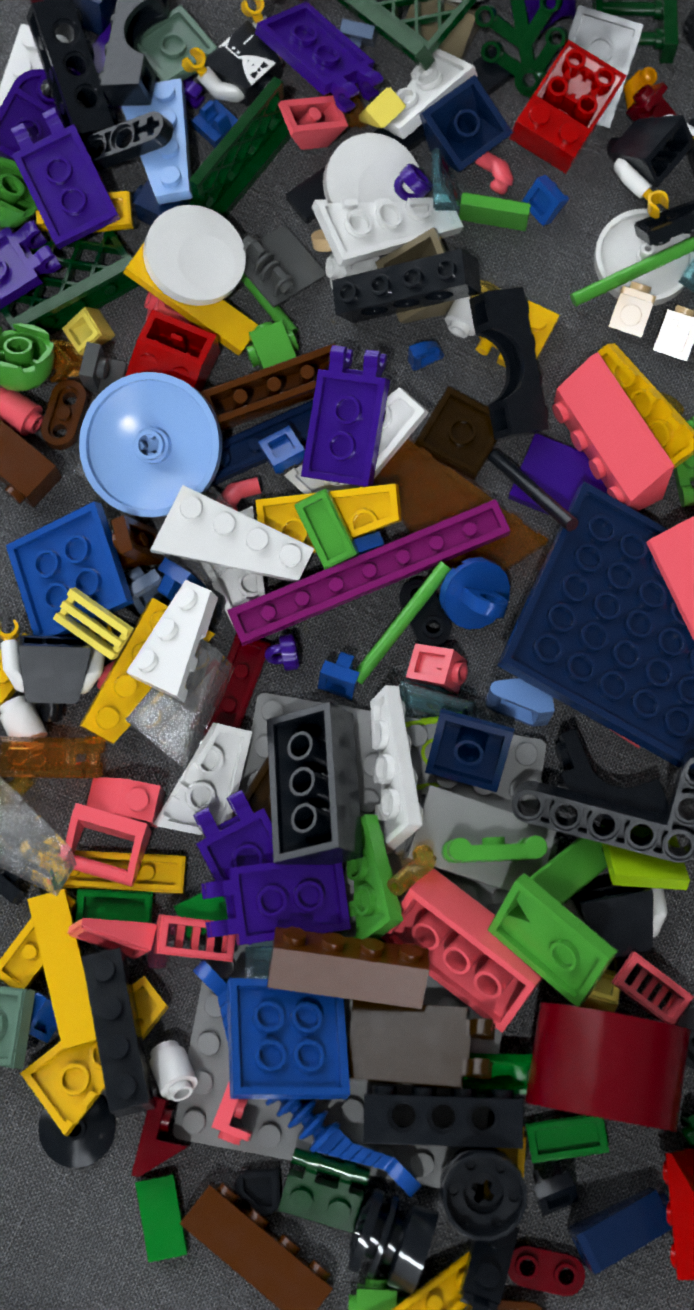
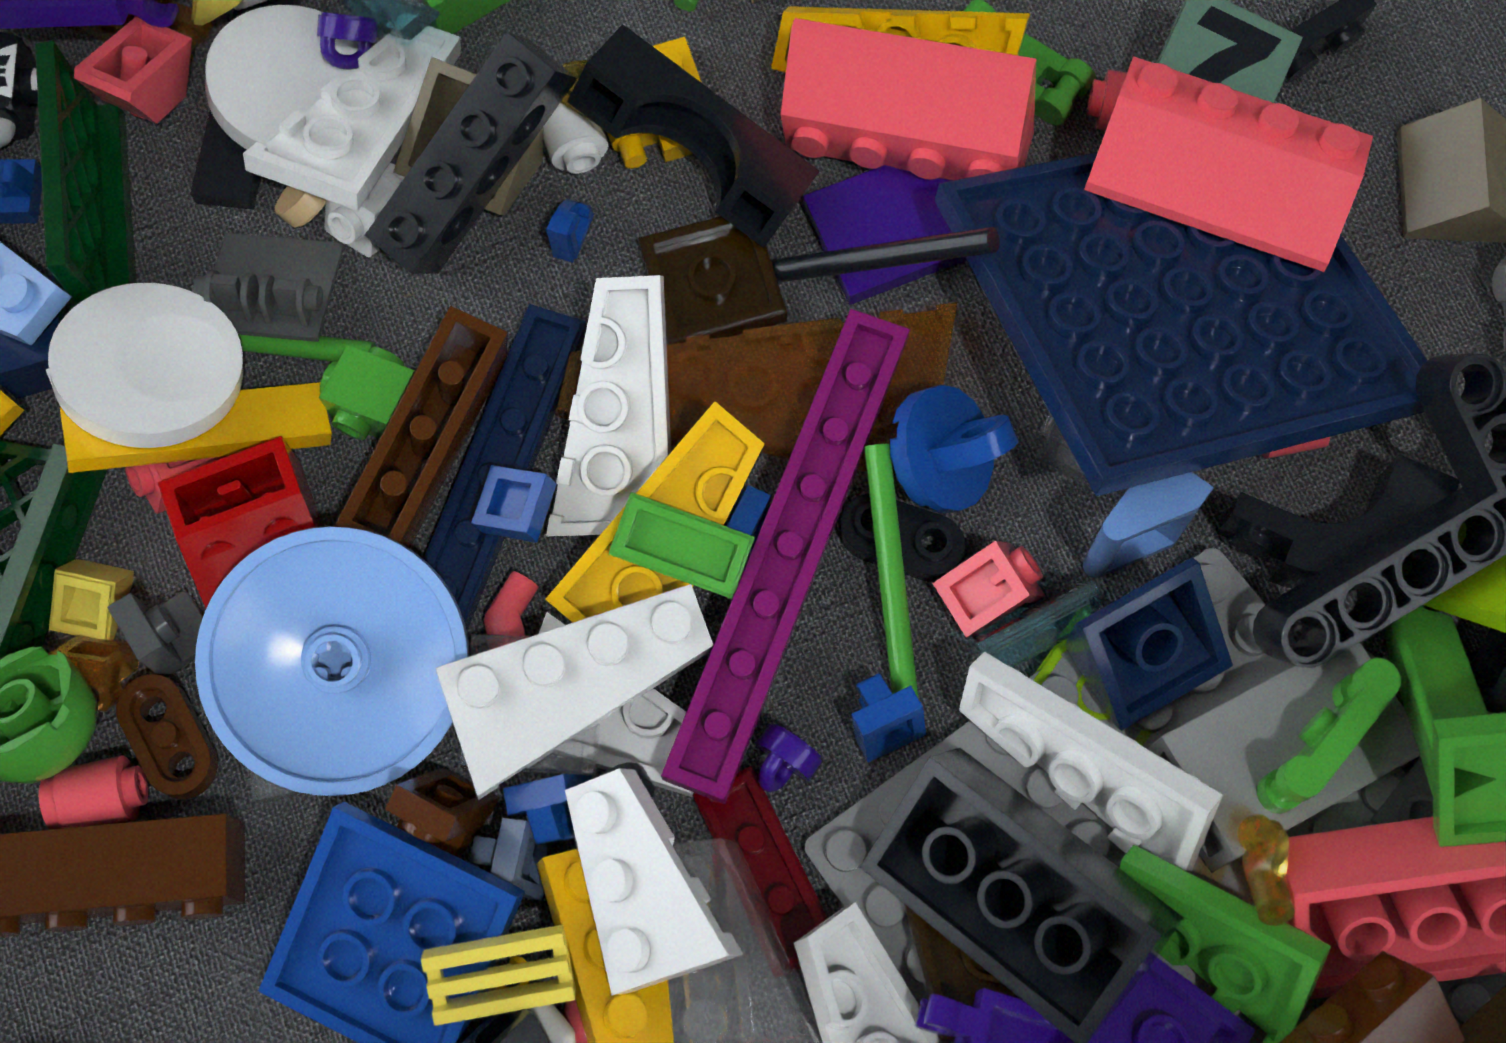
camera: 45 degrees left, 5 degrees down
(346, 419) = (567, 385): dark purple tile -> none

